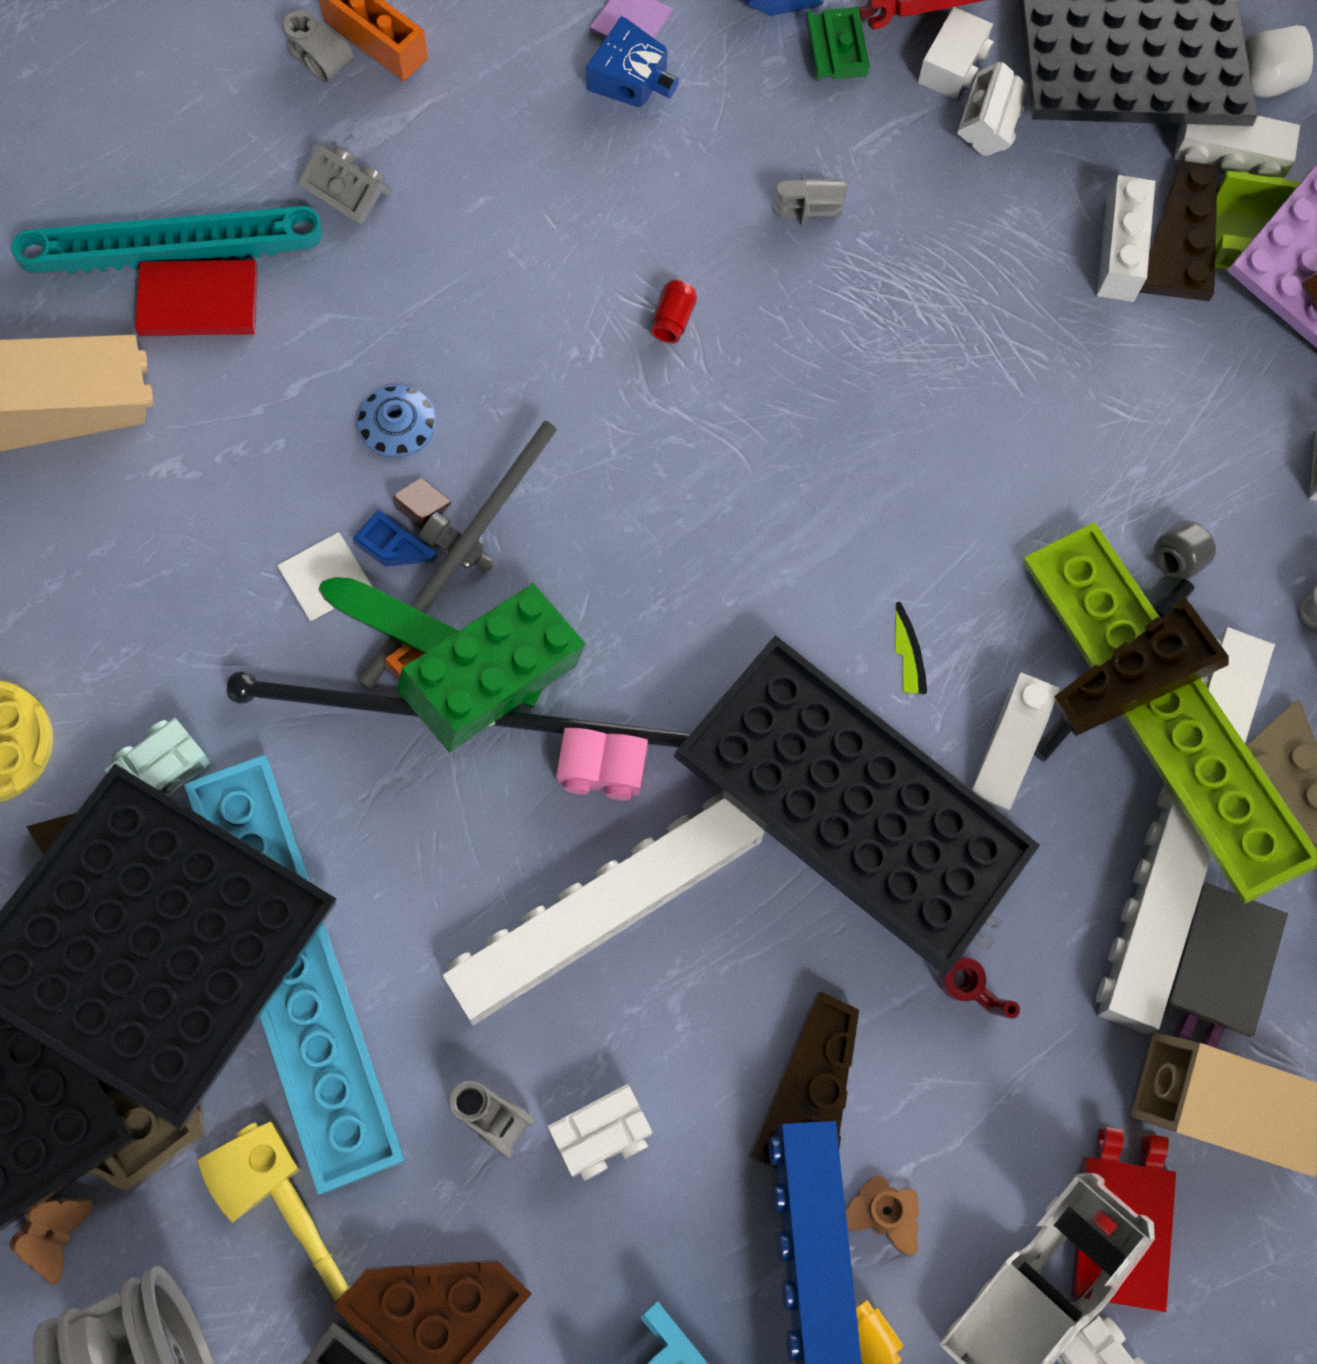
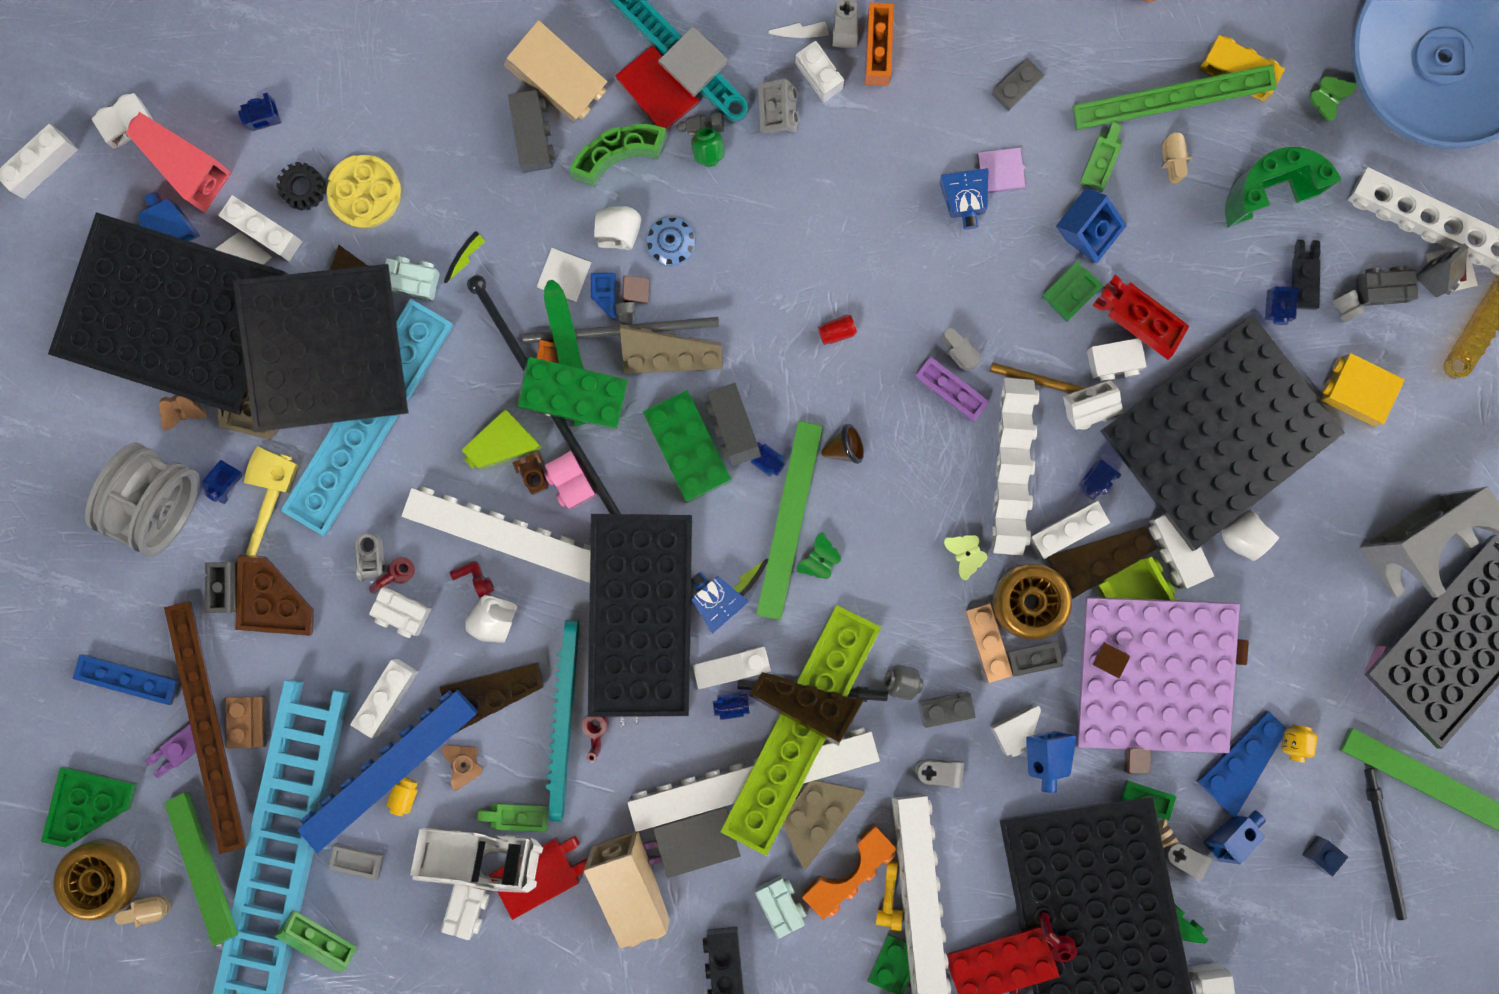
camera: 60 degrees right, 15 degrees up
(109, 473) = (531, 131): none -> dark grey brick
(189, 685) = (461, 258): none -> sticker
(203, 1255) = (220, 481): none -> clear blue bracket
(204, 224) = (693, 61): none -> light grey tile
(223, 382) = (614, 146): none -> bright green brick
(275, 105) = (797, 31): none -> white sticker
(285, 283) = (697, 122): none -> dark grey piece
(322, 287) = (708, 147): none -> green head
(325, 462) = (617, 227): none -> white piece
(345, 108) = (819, 71): none -> white brick
(478, 813) = (500, 443): none -> lime slope
(528, 526) = (658, 352): none -> dark tan wing
(541, 1098) = (394, 574): none -> dark red plate
(543, 800) = (529, 468): none -> reddish brown plate
(653, 986) = (481, 584): none -> dark red plate
(677, 583) = (687, 446): none -> green brick
(696, 503) = (732, 425): none -> dark grey brick
(708, 1251) = (384, 698): none -> white brick
(712, 1010) = (490, 619): none -> white piece
(770, 505) = (770, 461): none -> clear blue brick
(825, 406) = (845, 446): none -> reddish brown hat
(851, 242) = (952, 389): none -> medium lavender plate
(871, 540) = (789, 520): none -> bright green tile
(907, 153) = (1038, 379): none -> pearl gold bar
(911, 696) = (716, 600): none -> blue torso
(928, 1019) = (563, 721): none -> teal gear
(939, 523) = (822, 549): none -> green animal
(1002, 241) = (1014, 466): none -> white brick
(1017, 1190) = (516, 817): none -> bright green hinge
(1065, 780) = (731, 705): none -> clear blue brick
(1082, 374) = (959, 547): none -> yellowish green animal
(1086, 166) = (1098, 479): none -> clear blue brick
(1189, 331) = (1051, 597): none -> pearl gold wheel
(1201, 424) = (989, 643): none -> light nougat plate
(1257, 524) = (946, 709): none -> dark grey brick
(1260, 385) = (1035, 658): none -> dark grey plate

